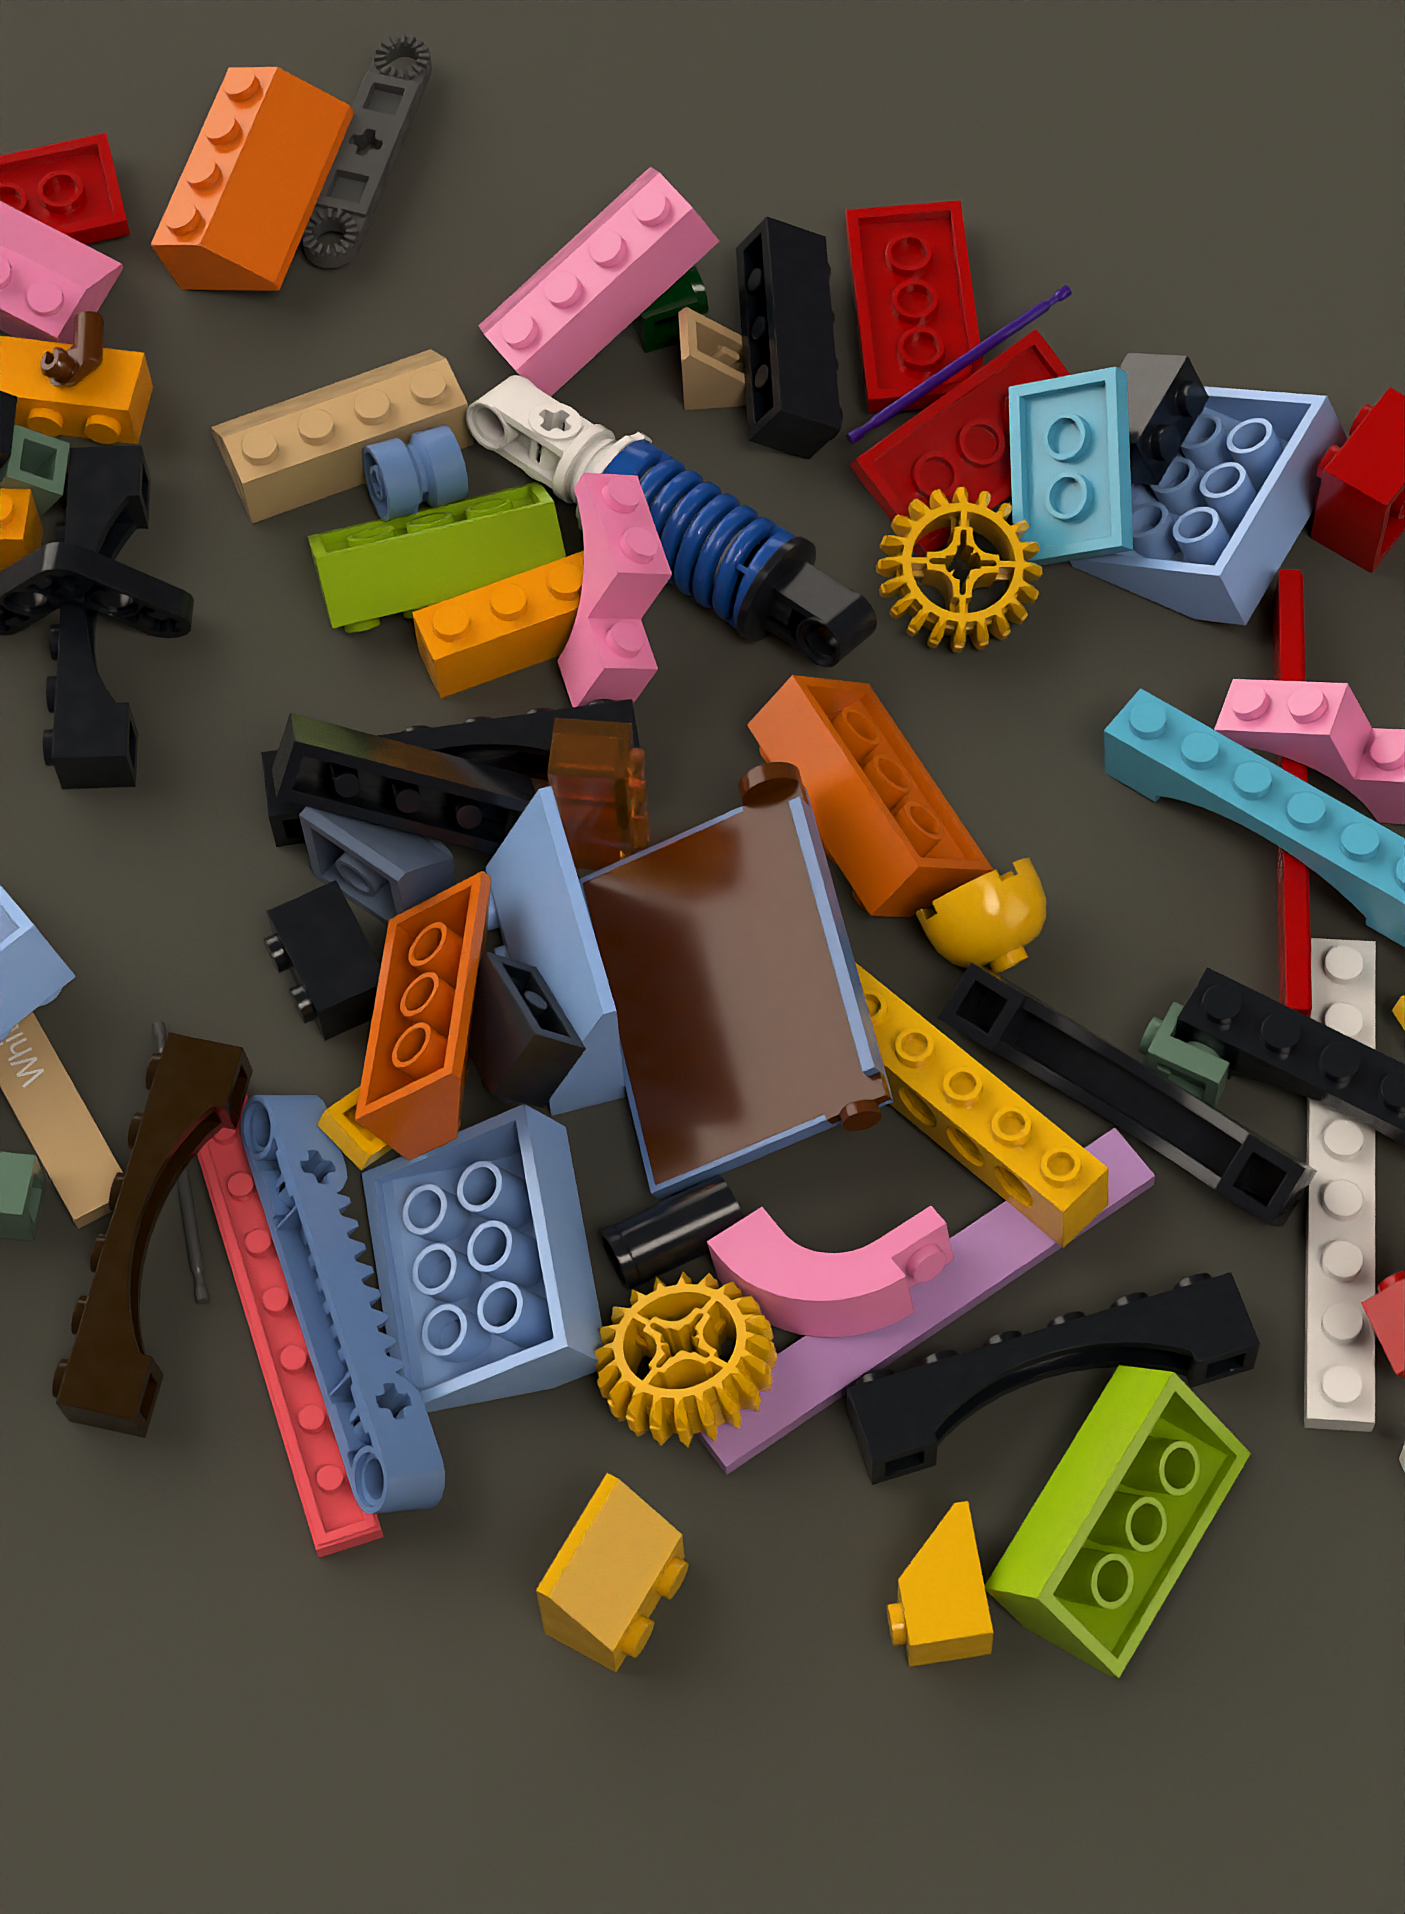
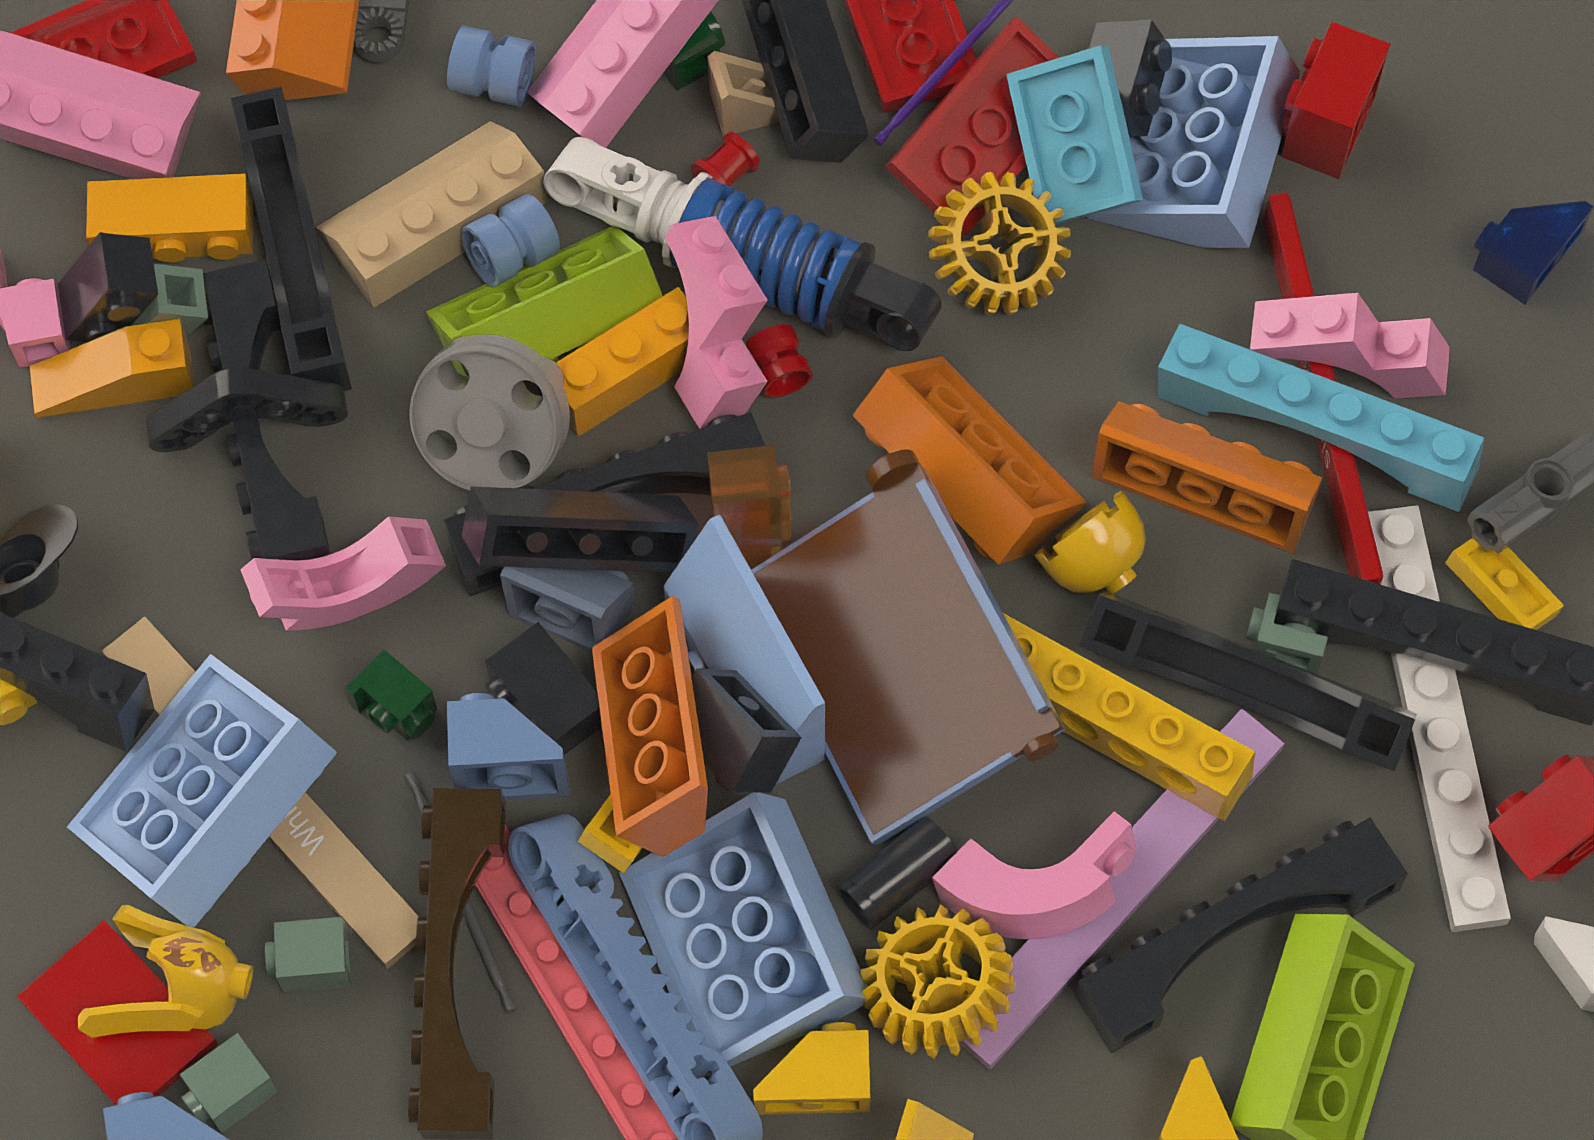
camera: 15 degrees left, 5 degrees up
(71, 366) = (195, 188): reddish brown arm -> none
(138, 805) = (348, 583): none -> bright pink arch
(158, 934) = (392, 697): none -> dark green brick
(179, 392) = (290, 238): none -> black arch
(253, 1003) = (502, 749): none -> medium blue slope
(340, 644) = (489, 412): none -> light grey piece
(435, 286) = (484, 64): none -> medium blue wheel
(526, 1438) = (820, 1075): none -> yellow slope
(680, 651) = (779, 360): none -> red wheel
(681, 432) = (729, 160): none -> red bush
(1133, 862) = (1205, 475): none -> orange slope

